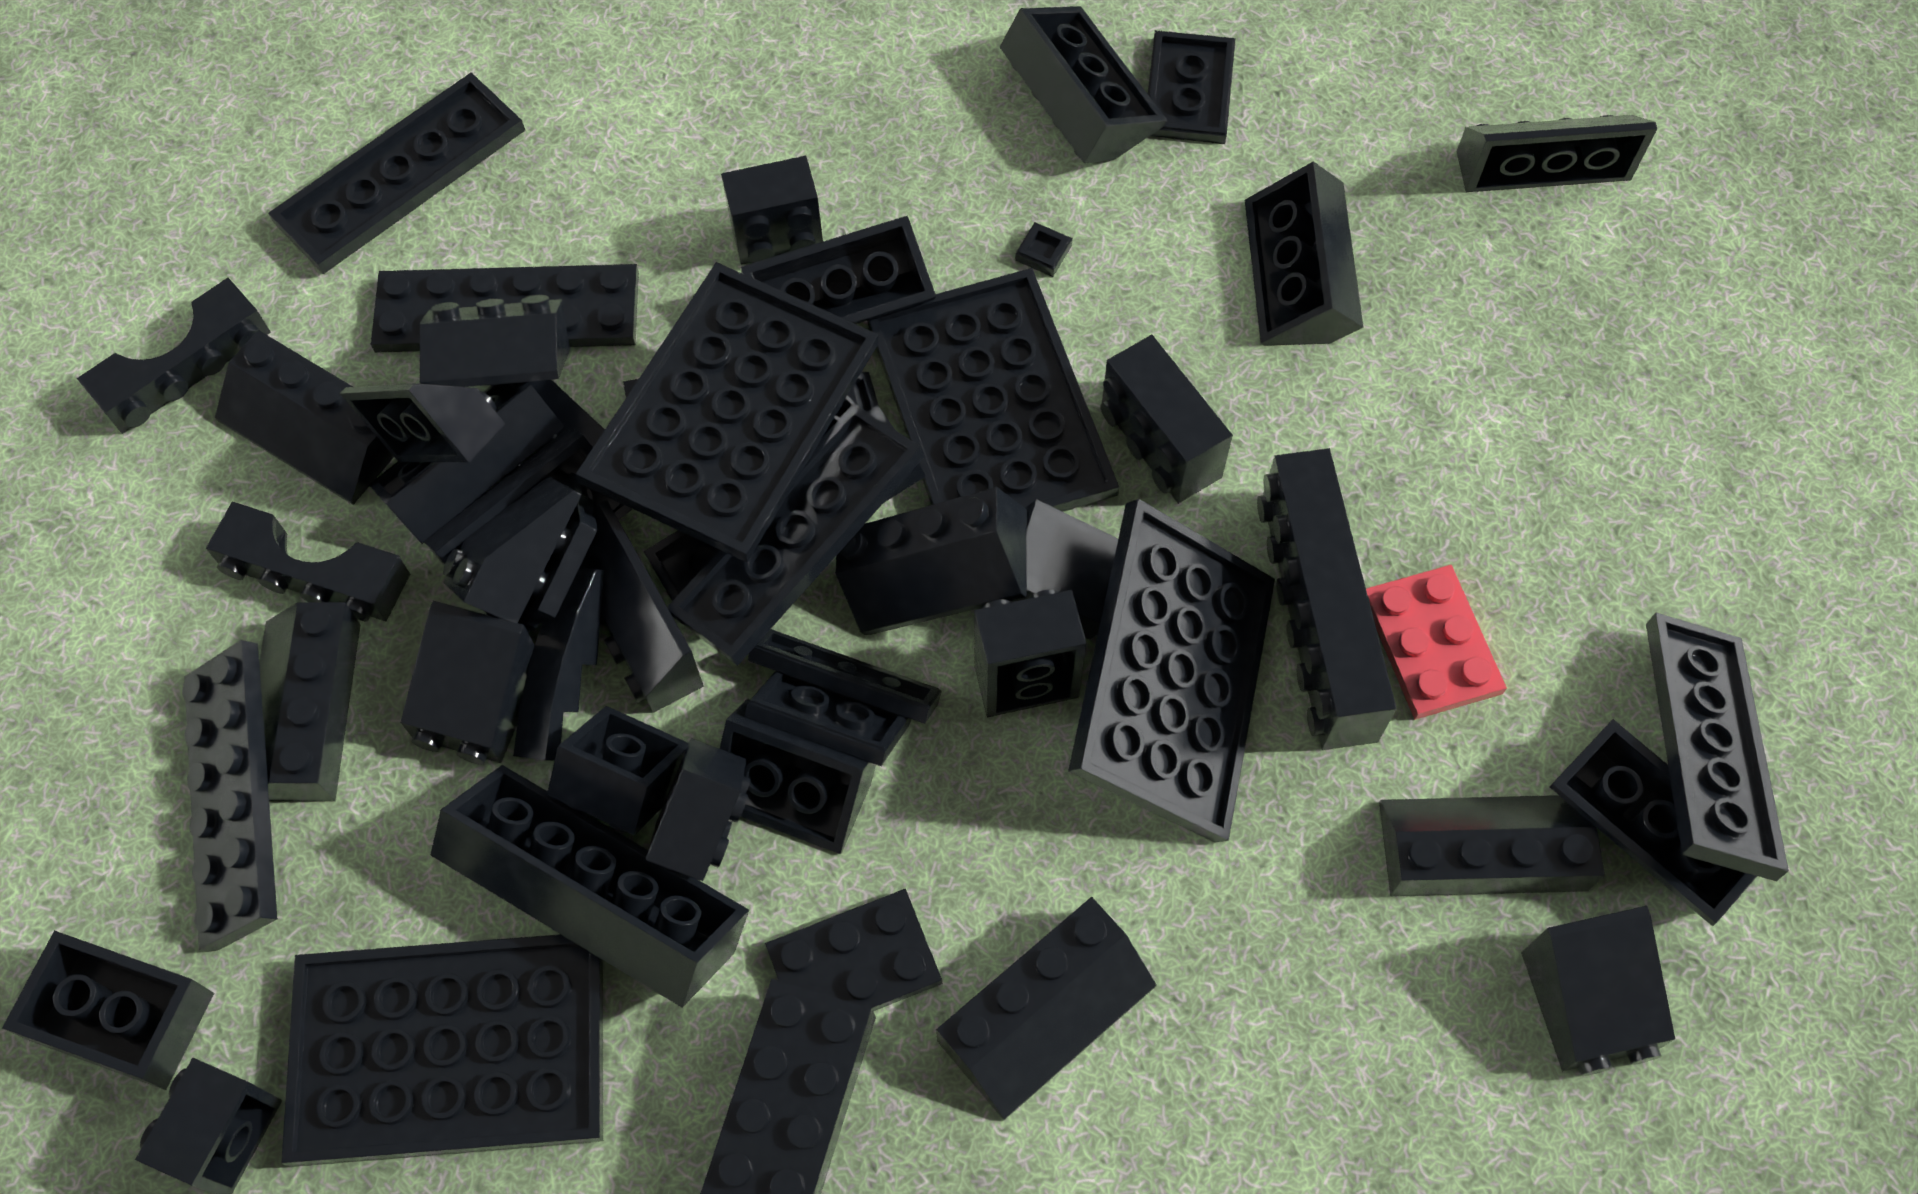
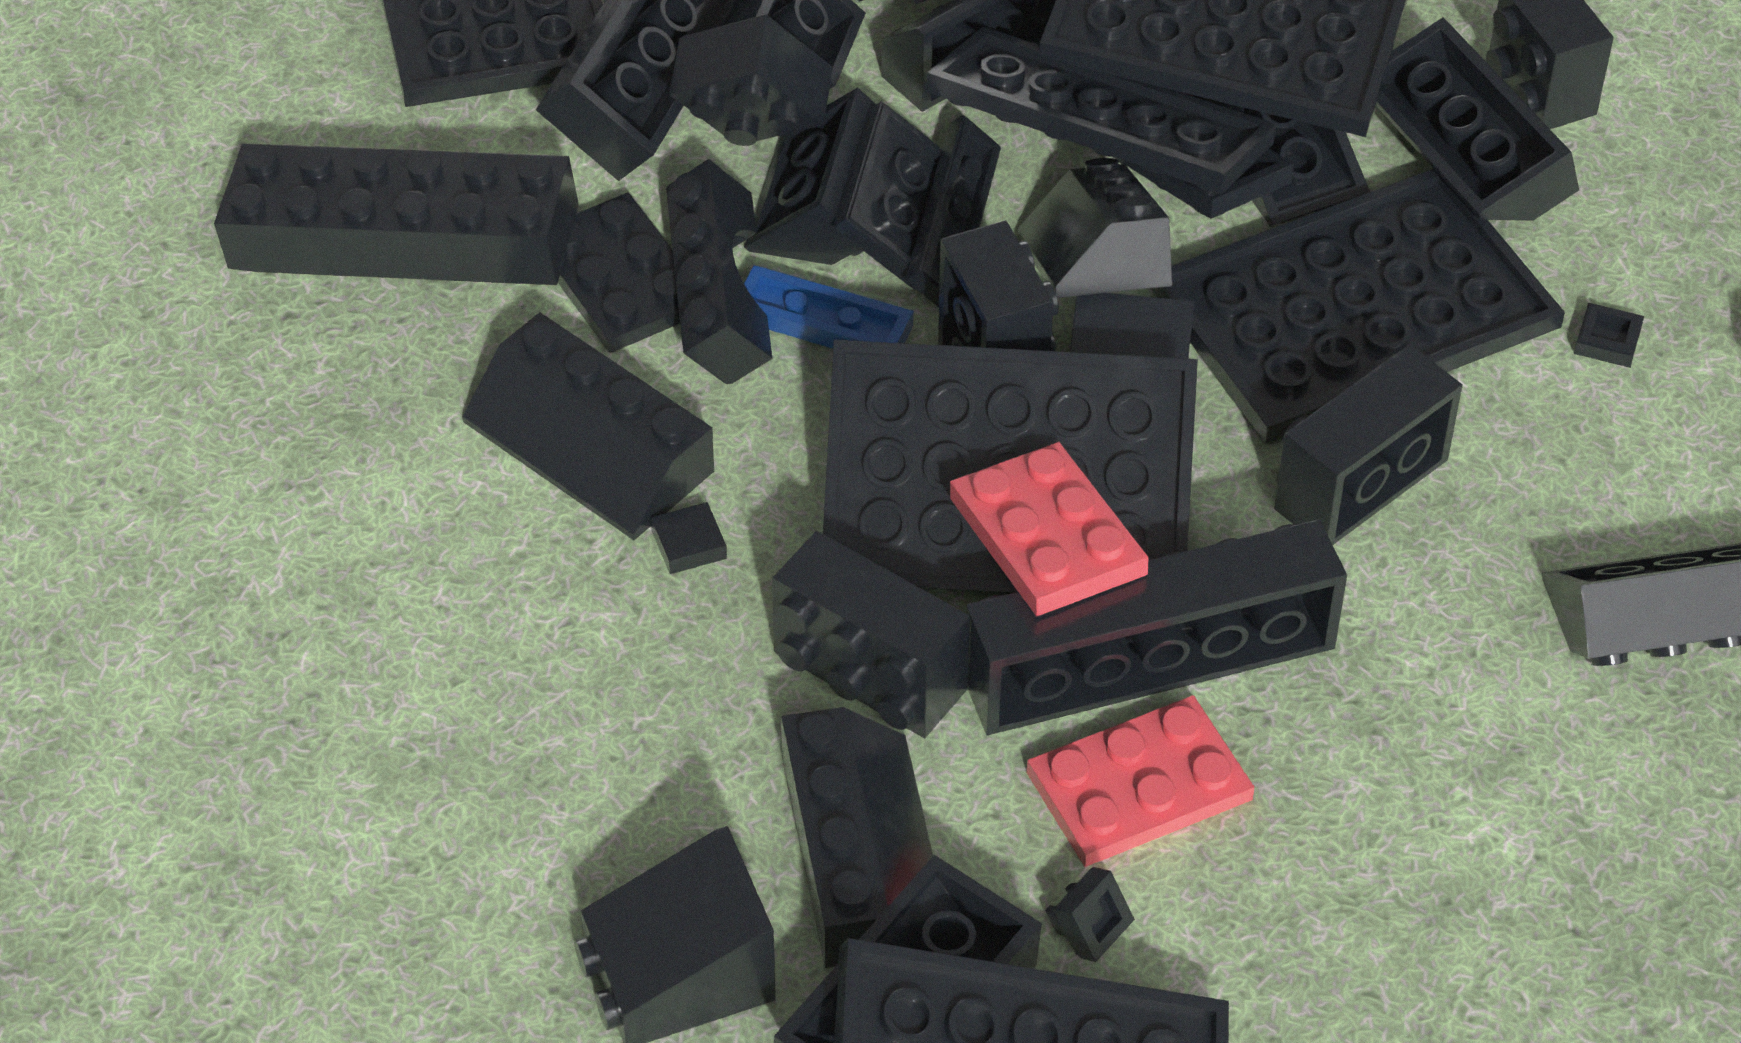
camera: 80 degrees right, 15 degrees down
(845, 875) = (717, 314): none -> black arch
(941, 798) = (823, 312): none -> blue plate
(1166, 939) = (688, 538): none -> black tile
(1270, 644) = (1048, 528): none -> coral plate
(1319, 804) = (870, 634): none -> black brick
(1563, 692) = (1091, 914): none -> black tile

